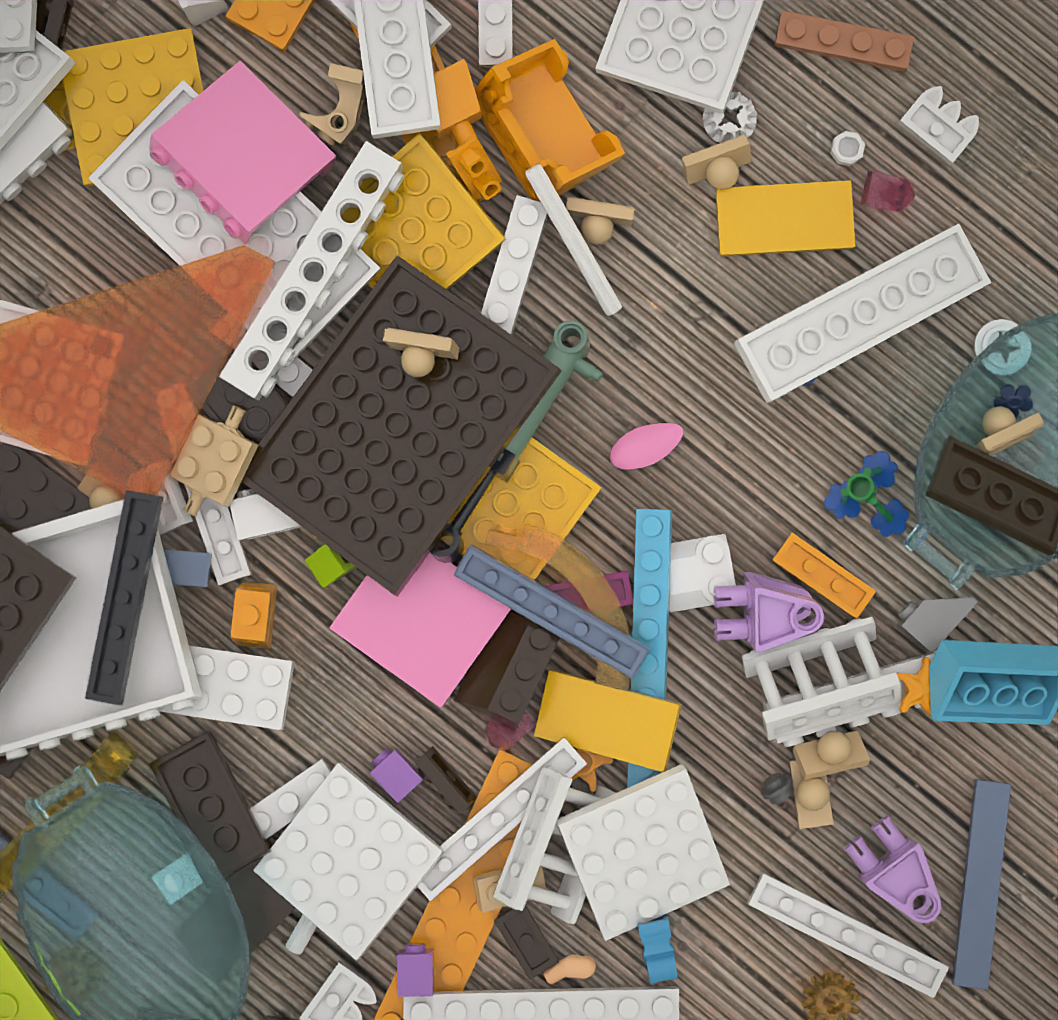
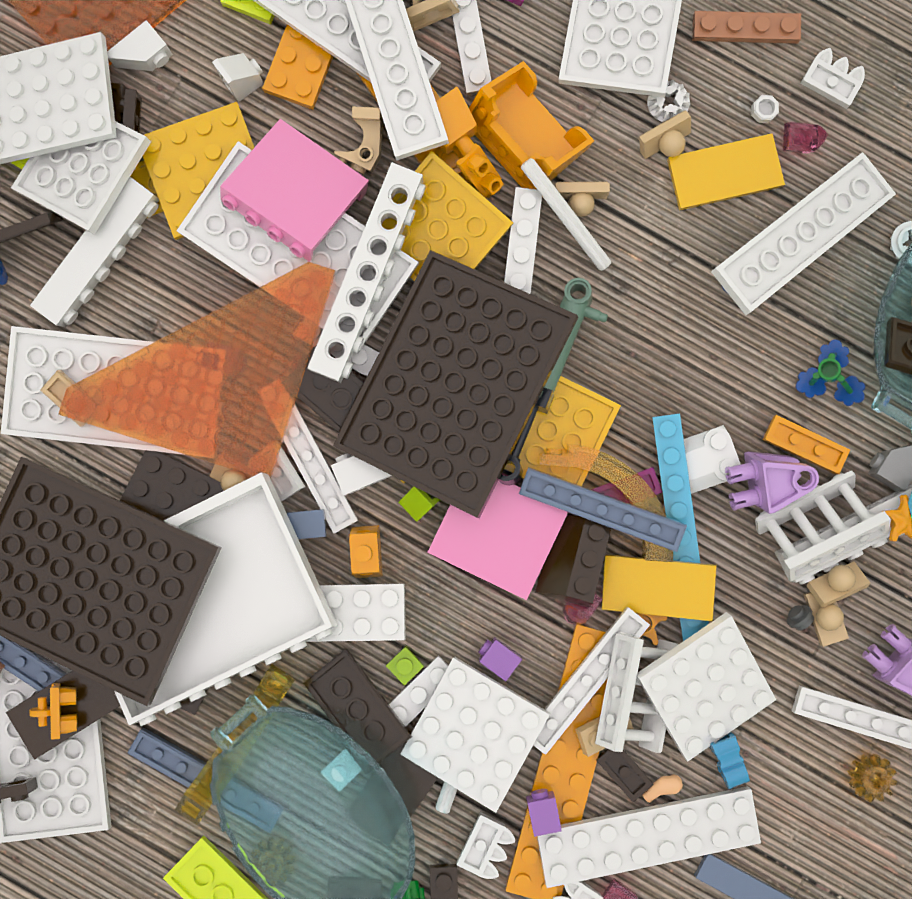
camera: 10 degrees left, 0 degrees up
(124, 597) = (262, 557): black plate -> none
(214, 460) = (313, 435): tan plate -> none
(278, 763) = (405, 665): none -> lime plate
(420, 349) = (463, 319): tan tile -> none
(453, 789) = (546, 662): dark brown plate -> none
(645, 445) = (649, 367): bright pink arm -> none

